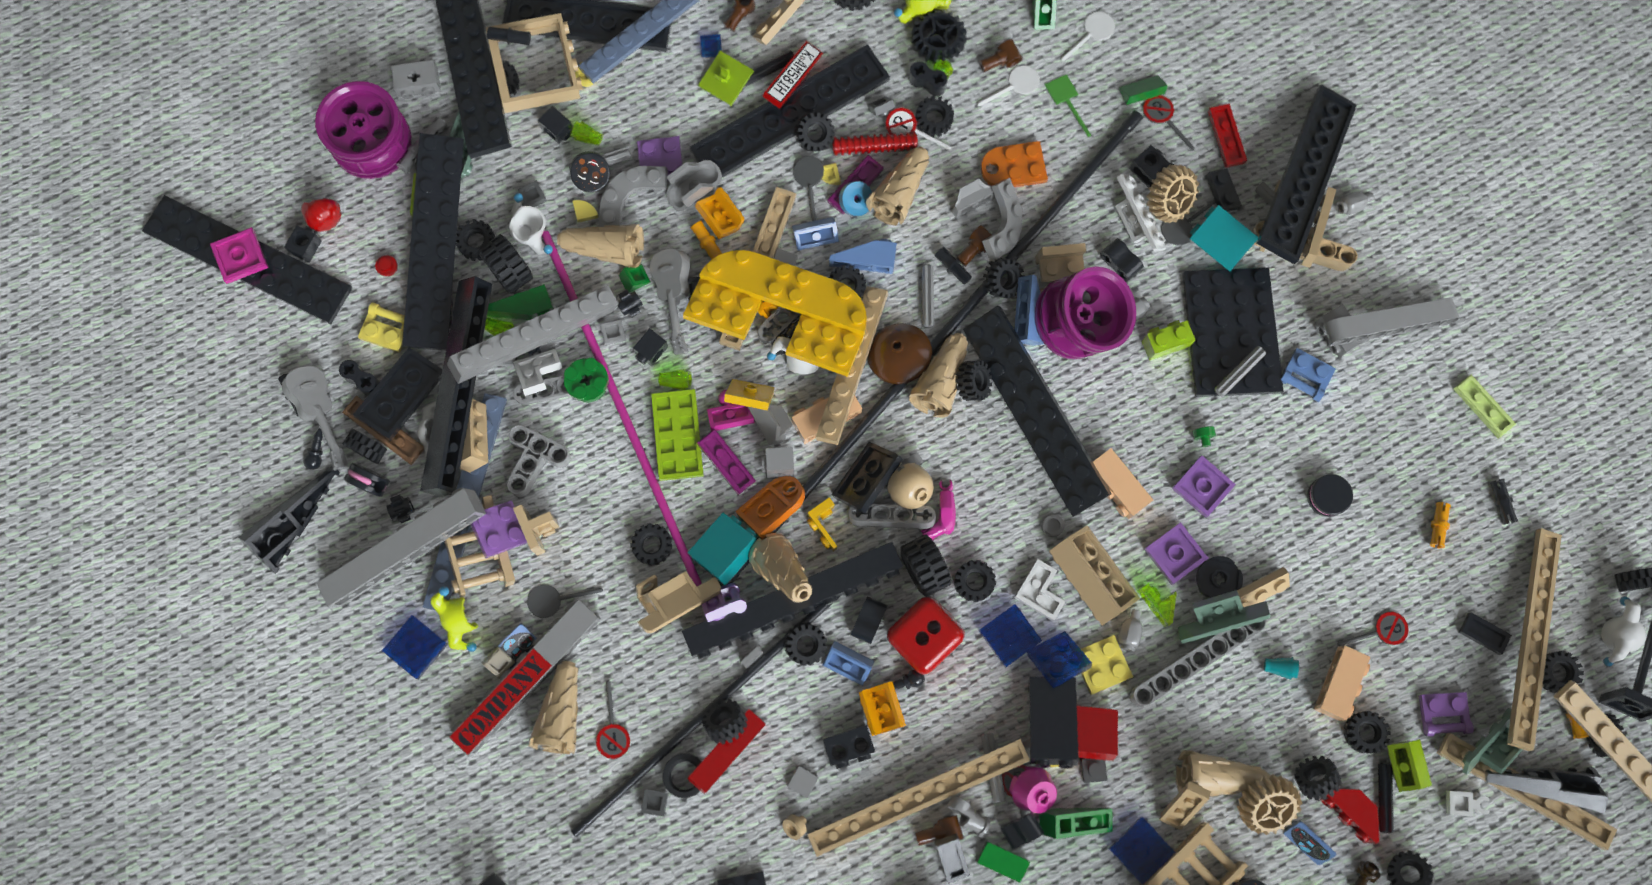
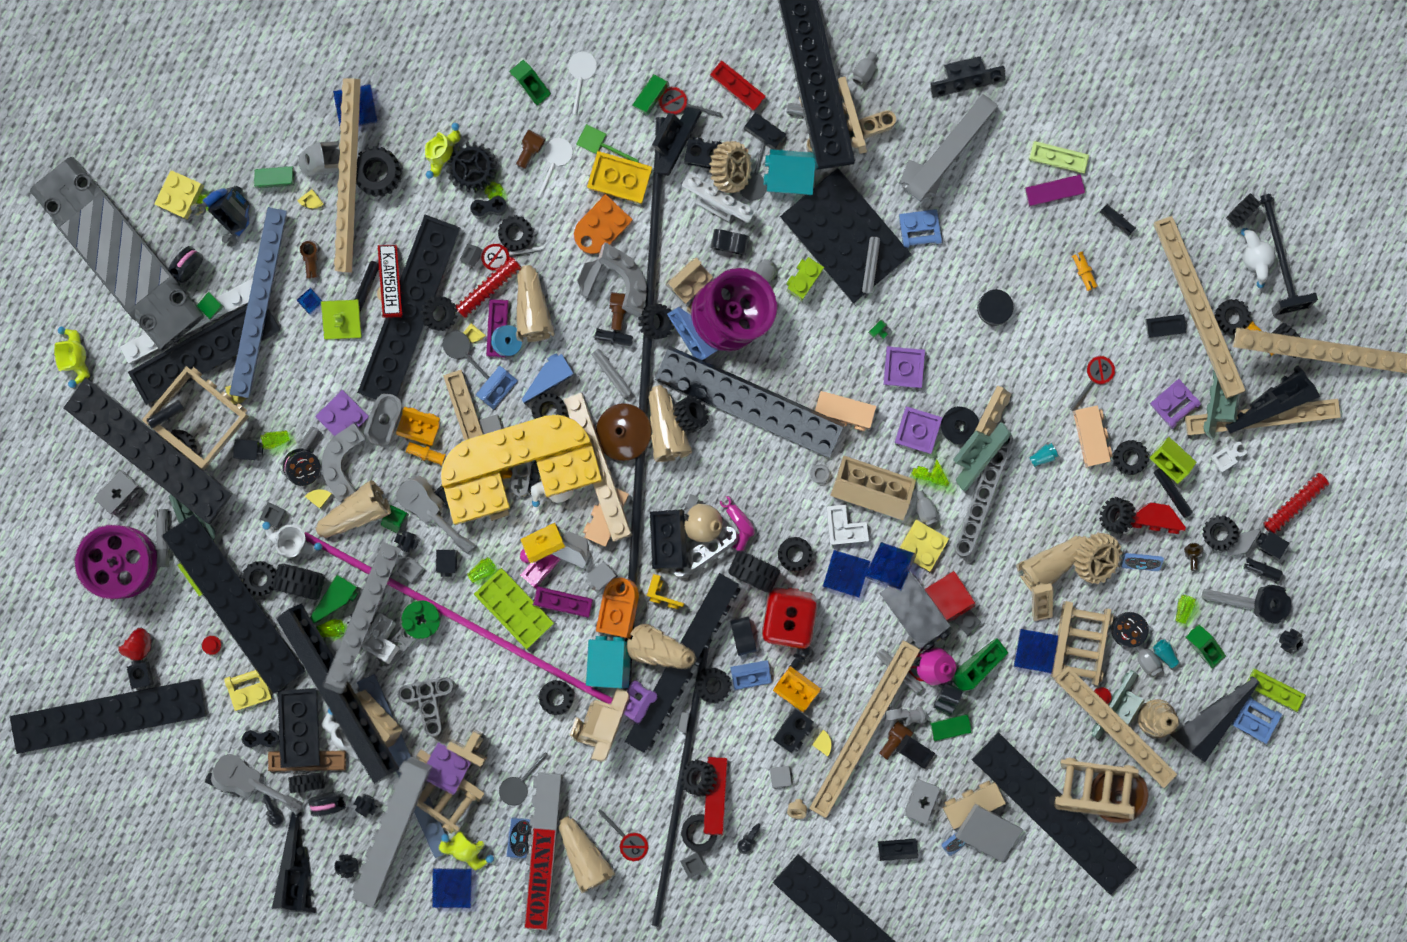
camera: 35 degrees left, 10 degrees up
(239, 255) = (104, 719): dark pink plate -> none
(337, 550) = (346, 866): none -> black gear
(498, 662) = (516, 854): dark tan tile -> none
(719, 823) = (745, 845): none -> black bar
(868, 781) = (823, 743): none -> light yellow tile
(1063, 136) = (619, 177): none -> yellow plate
(1137, 134) = (673, 138): none -> black bracket
(1445, 274) = (965, 76): none -> black bracket
(1460, 432) = (1054, 190): none -> magenta tile

